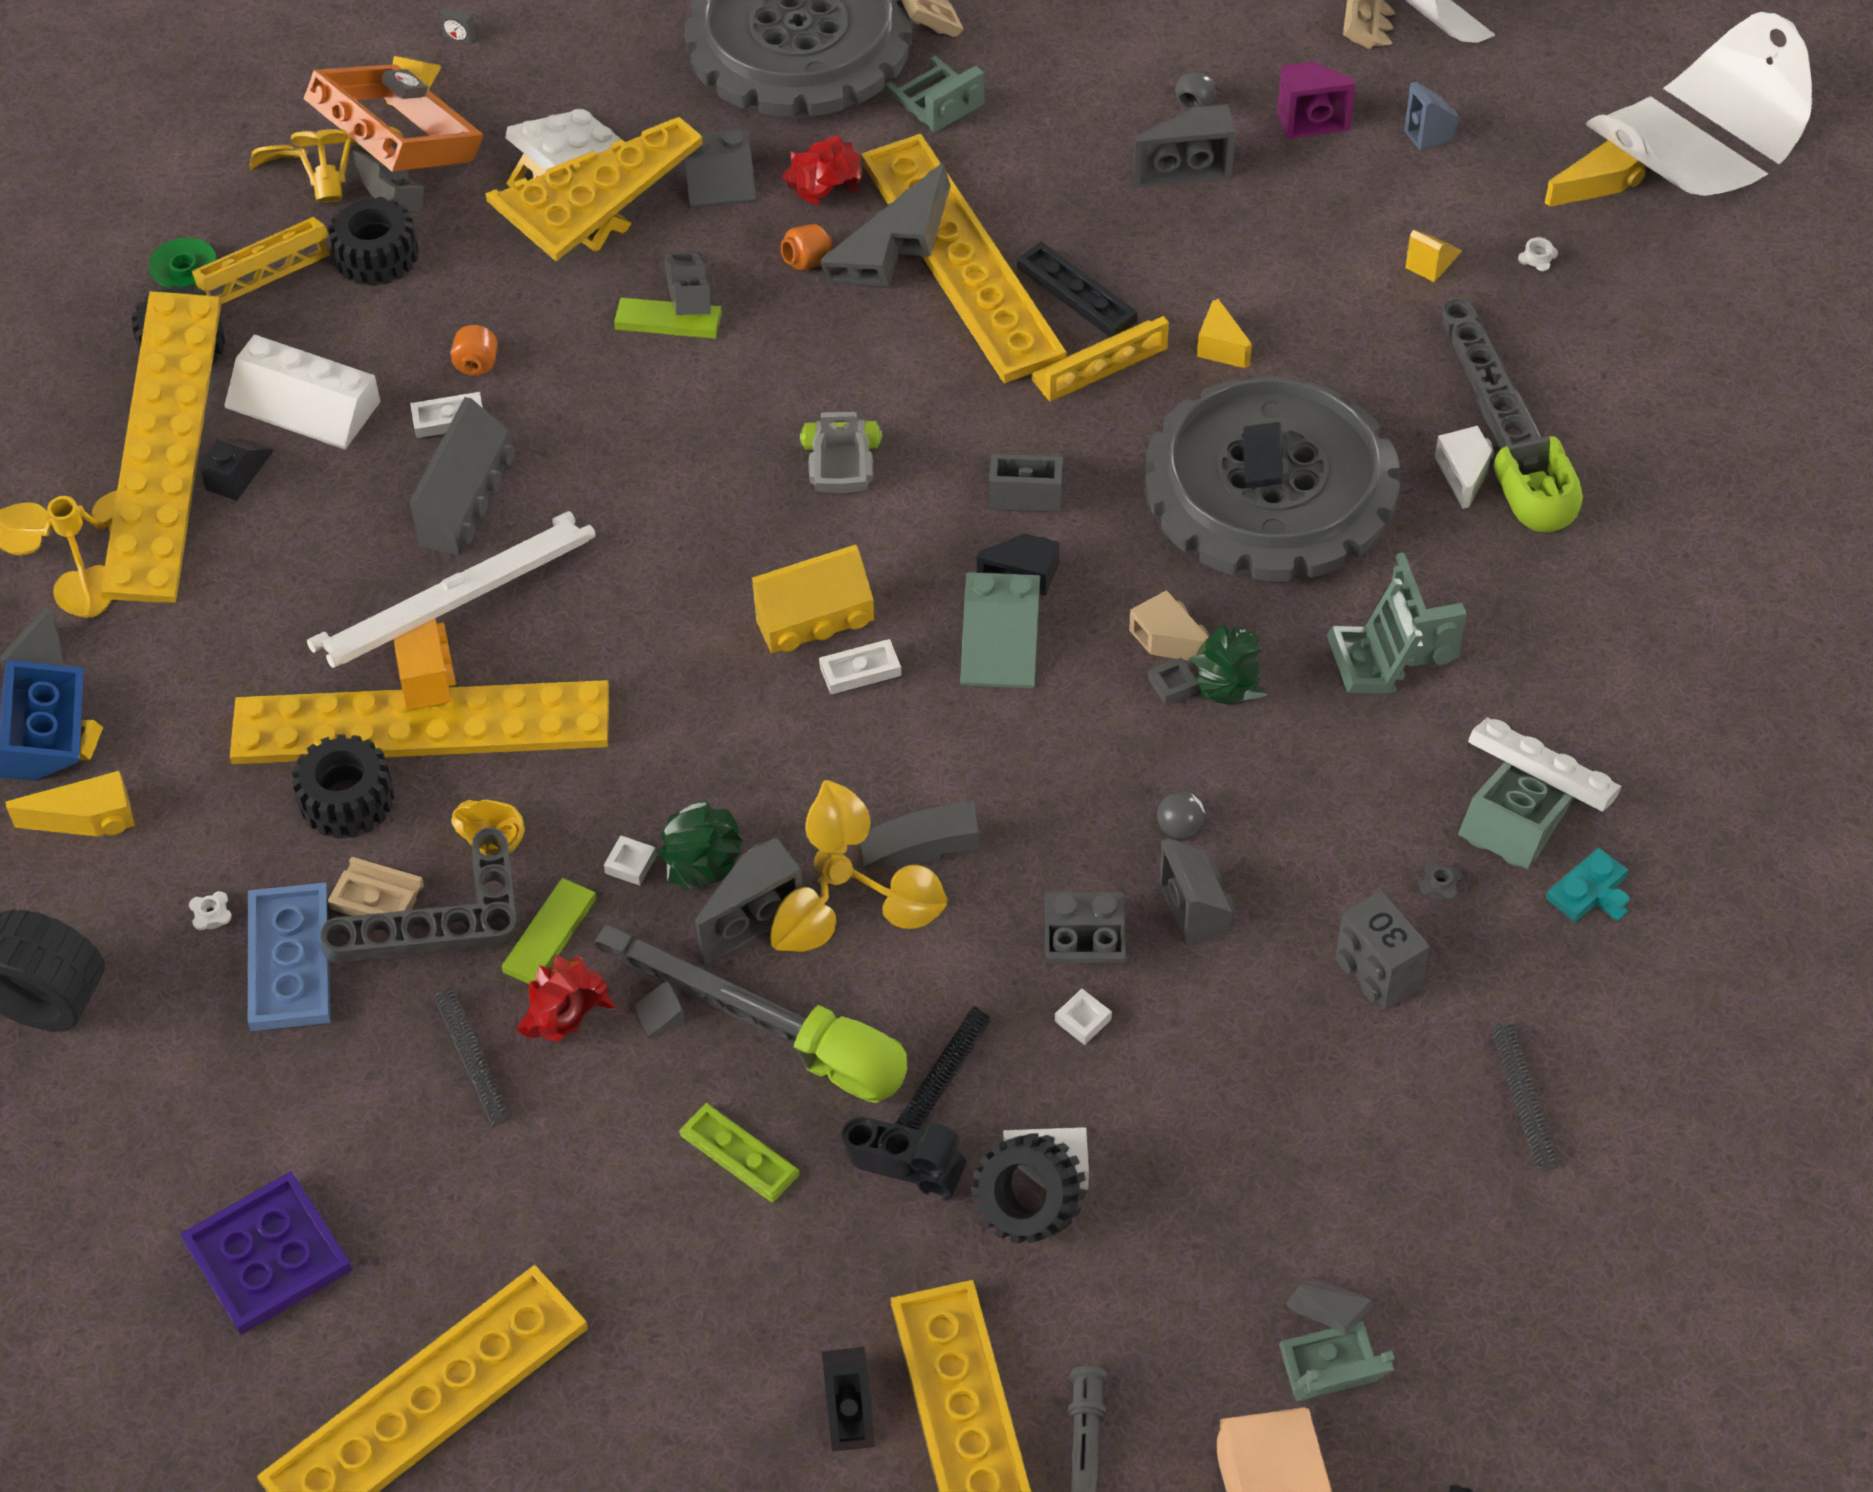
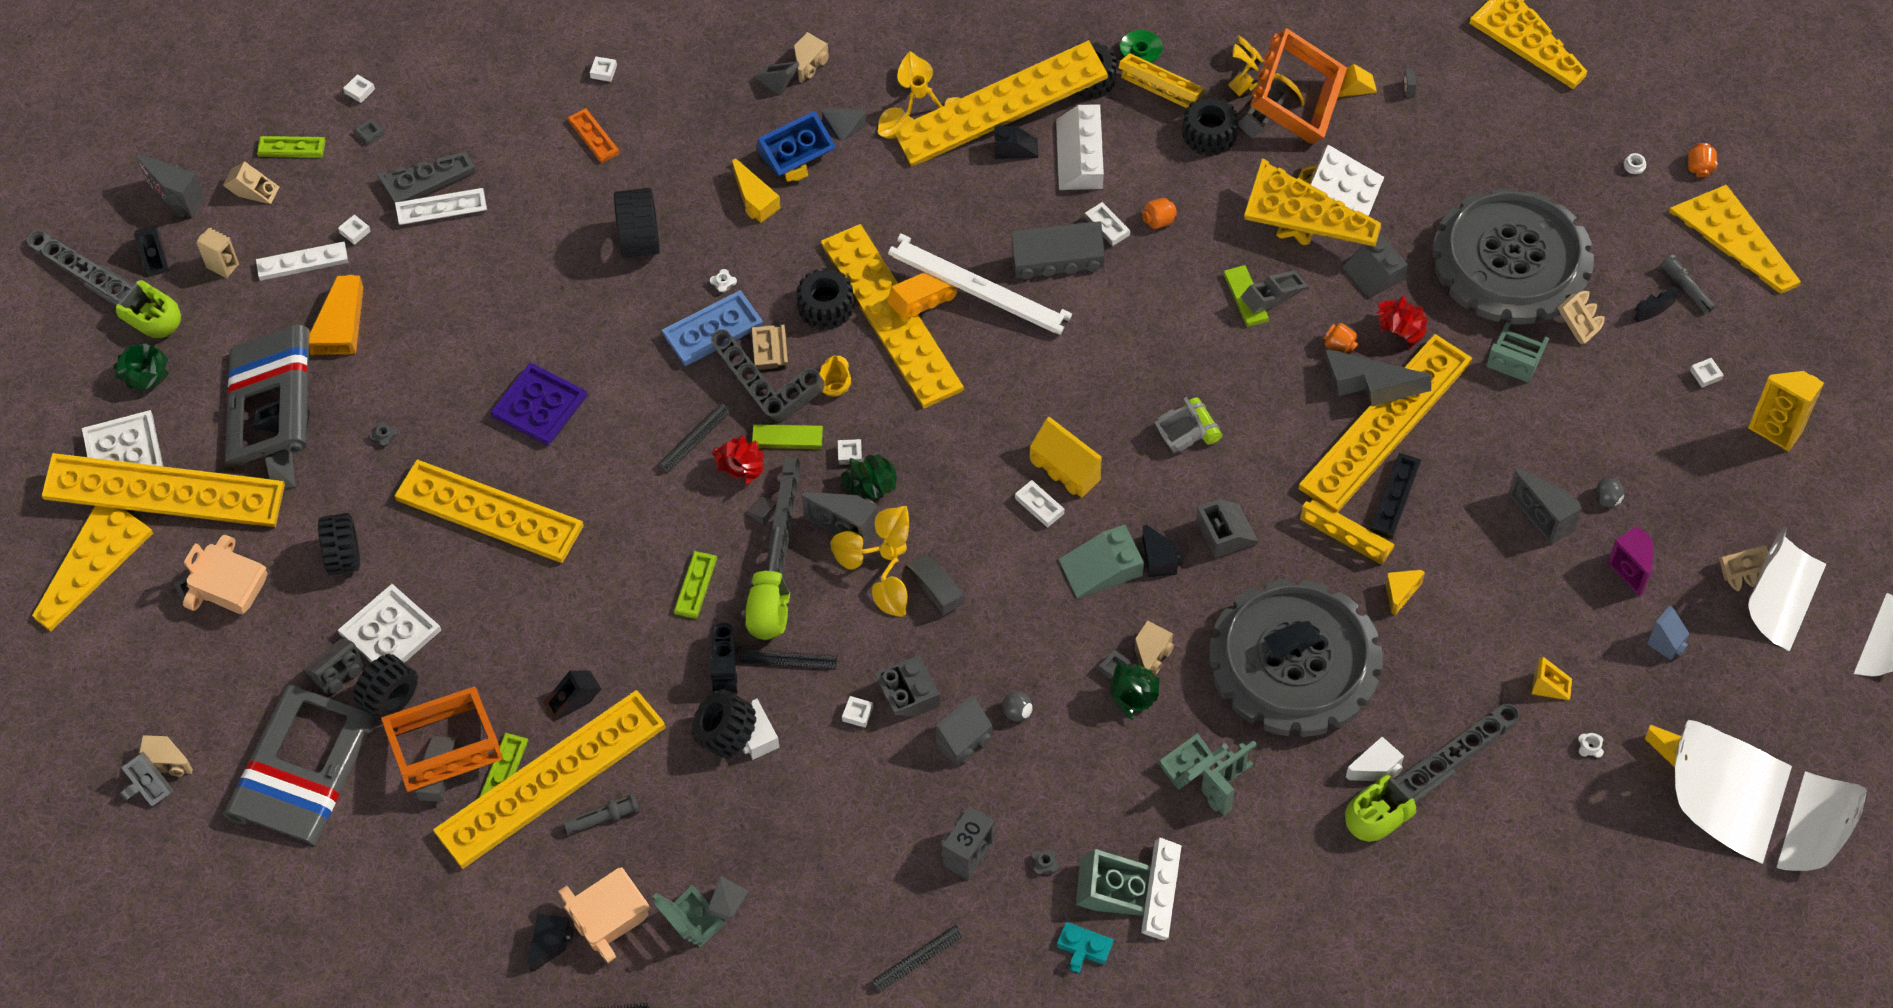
camera: 65 degrees right, 5 degrees up
(404, 84) = (1326, 78): dark grey tile -> none

